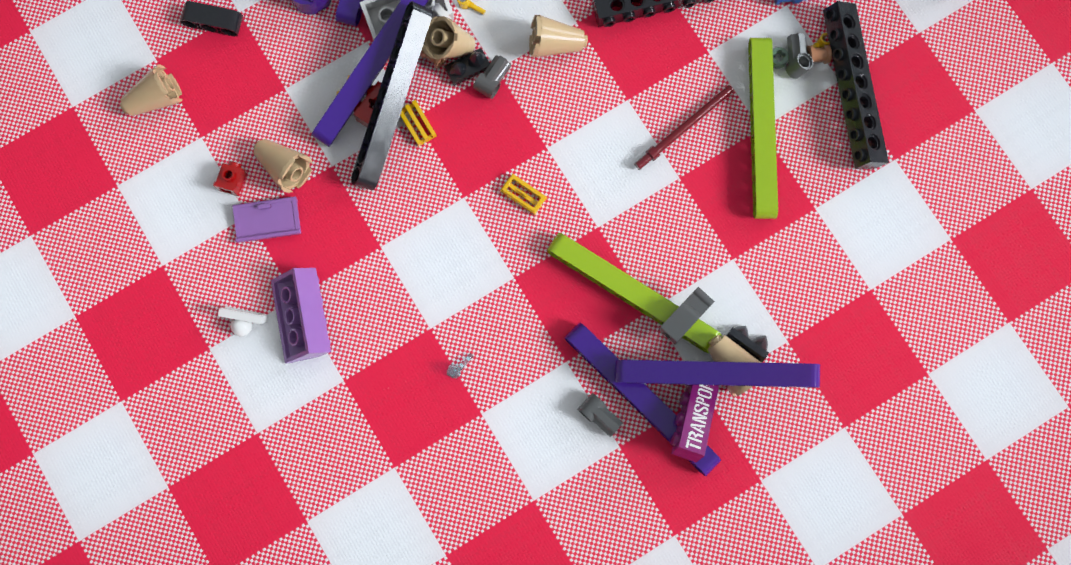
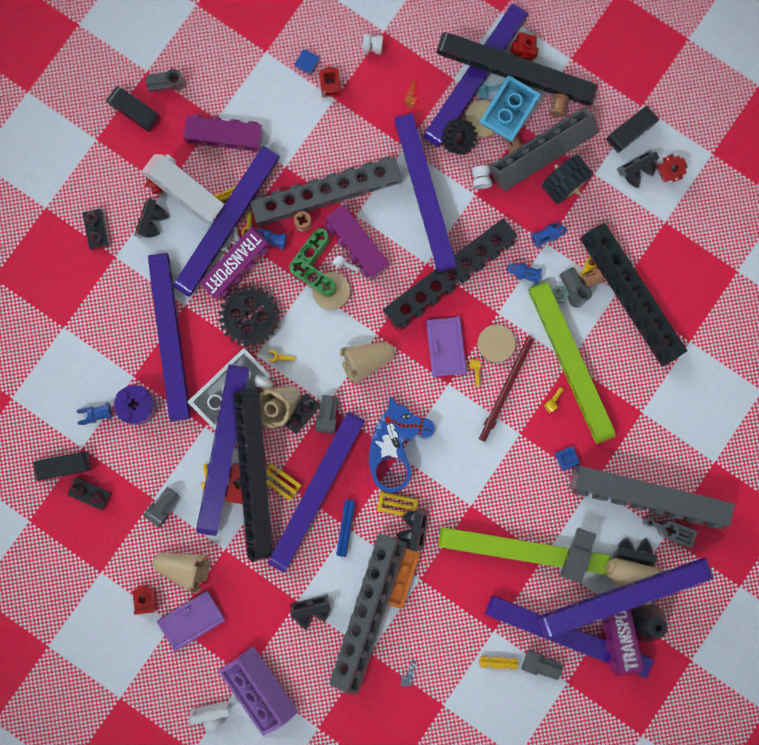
camera: 30 degrees left, 5 degrees up
(151, 93) = (42, 555): tan cone -> none
(225, 56) = (89, 493): none -> black tile
(285, 99) = (159, 511): none -> dark grey piece
(380, 257) = (317, 606): none -> black tile
(445, 284) = (368, 614): none -> dark grey brick
(447, 146) = (316, 492): none -> dark purple beam
(461, 194) = (345, 528): none -> blue axle
(495, 266) = (404, 578): none -> orange plate
(536, 217) = (416, 536): none -> black tile
(549, 120) = (392, 430): none -> blue animal
(557, 393) = (498, 662): none -> yellow axle
(645, 56) = (447, 342): none -> medium lavender door
(663, 91) = (475, 365): none -> yellow hand
(693, 79) = (496, 343): none -> tan tile
(717, 221) = (567, 458): none -> blue tile
(723, 161) = (550, 406): none -> yellow hand
(725, 426) = (649, 622): none -> black cone
(750, 19) = (520, 272): none -> blue piece
(789, 291) = (651, 496): none -> dark grey brick
(802, 344) = (676, 530): none -> dark grey piece

